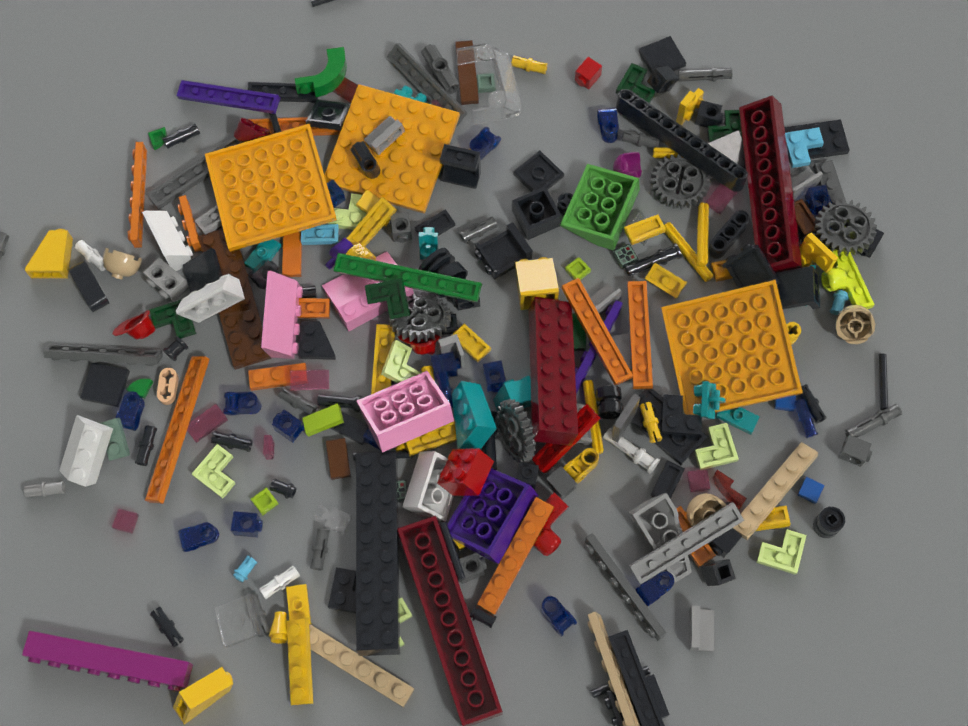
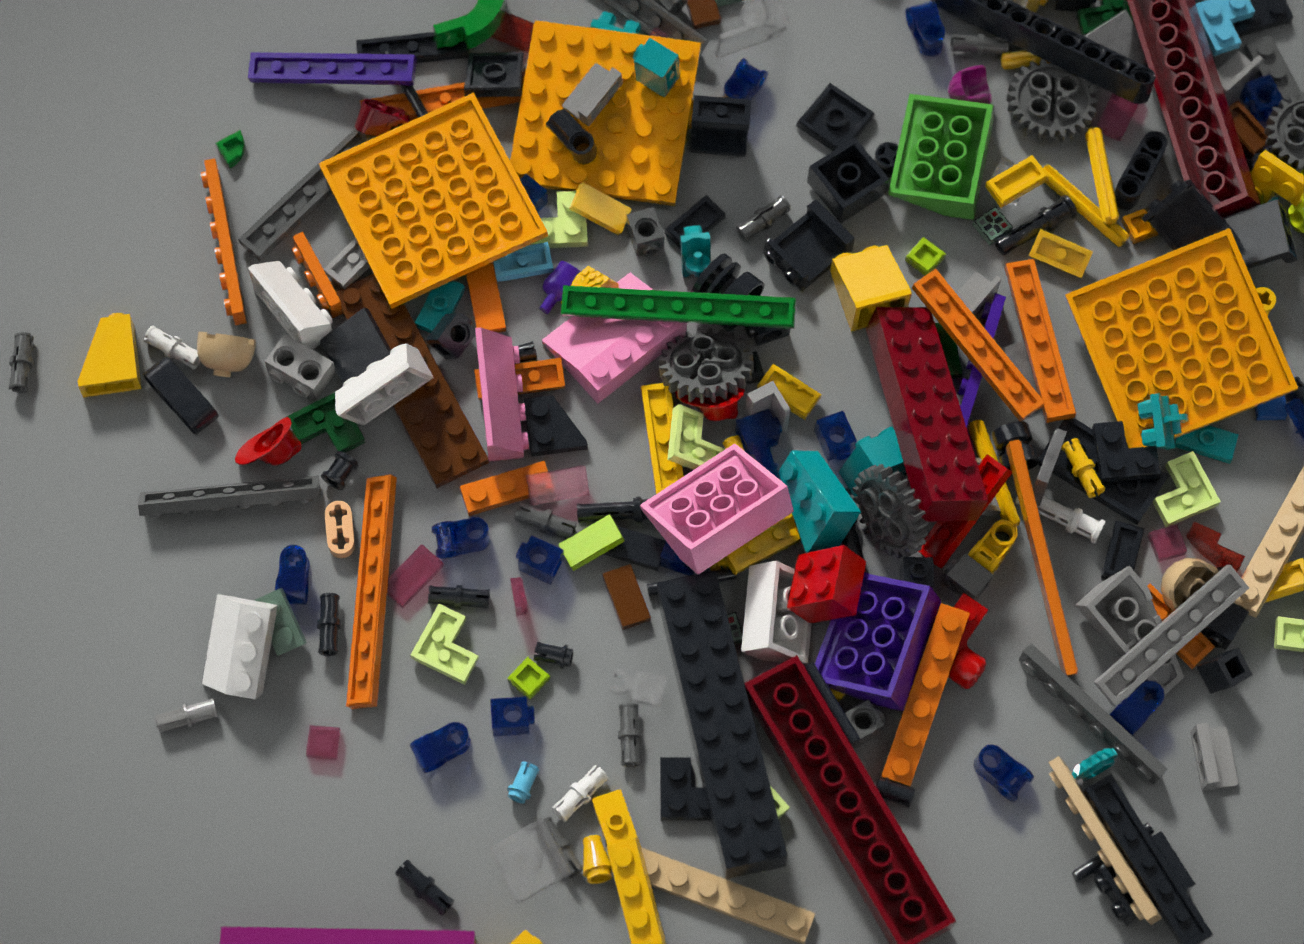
camera: 15 degrees left, 0 degrees up
(105, 384) = (241, 542): black tile -> none
(141, 387) = (298, 535): green tile -> none
(181, 136) = (269, 140): black pin -> none
(372, 223) = (601, 232): yellow plate -> none
(392, 292) = (660, 332): dark green plate -> none
(424, 123) = (656, 67): none -> teal brick
(610, 478) = (1041, 558): none -> orange tile
(619, 621) = (1095, 764): none -> teal gear

